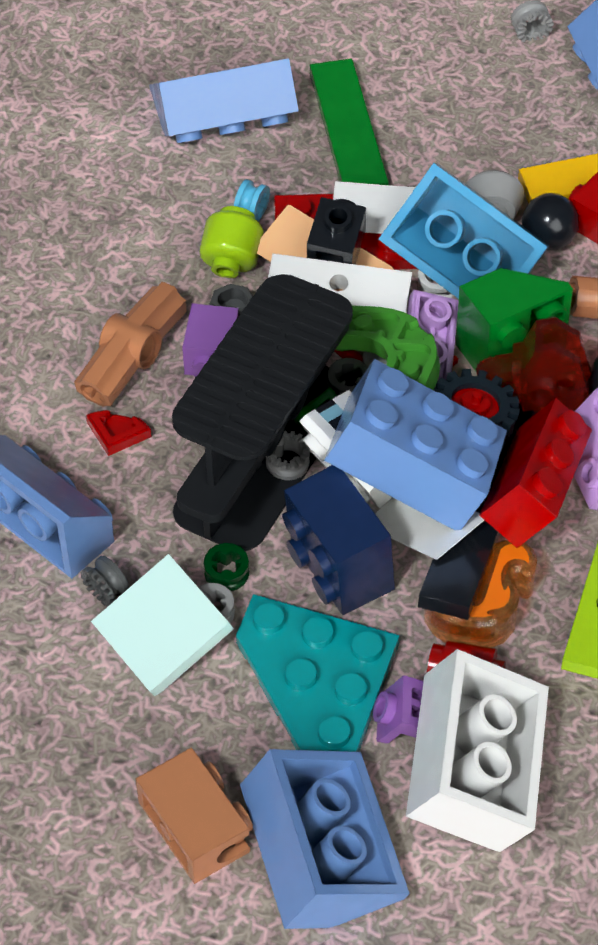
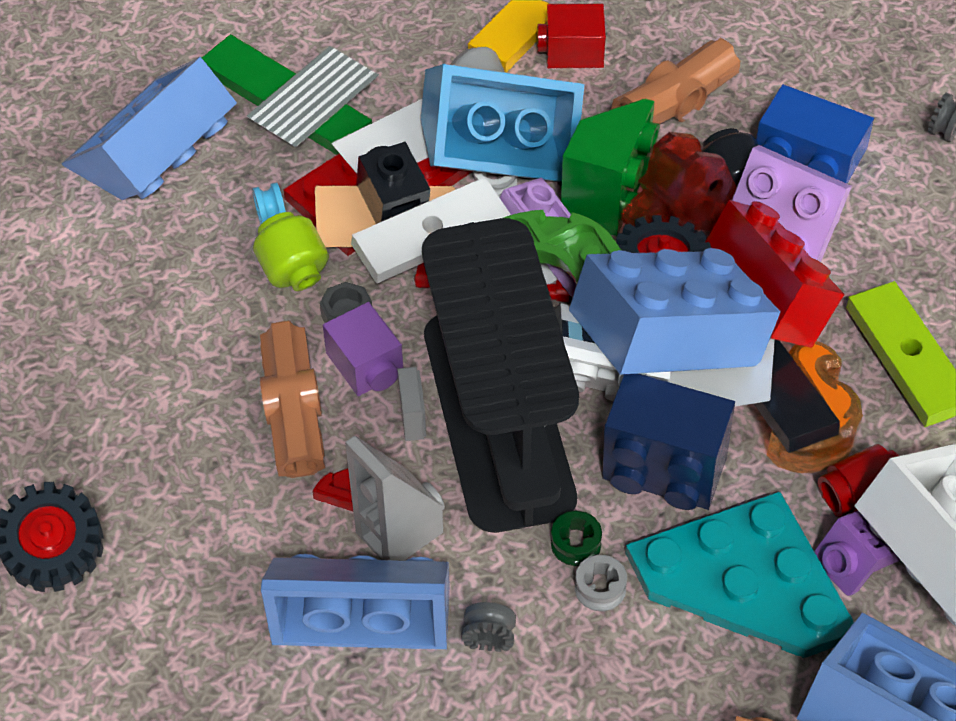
camera: 40 degrees left, 0 degrees up
(112, 449) = (390, 505): none -> light grey slope
(162, 625) = (581, 629): light aqua tile -> none
(363, 139) = (312, 96): none -> light grey sticker
(551, 219) = (544, 60): black piece -> none

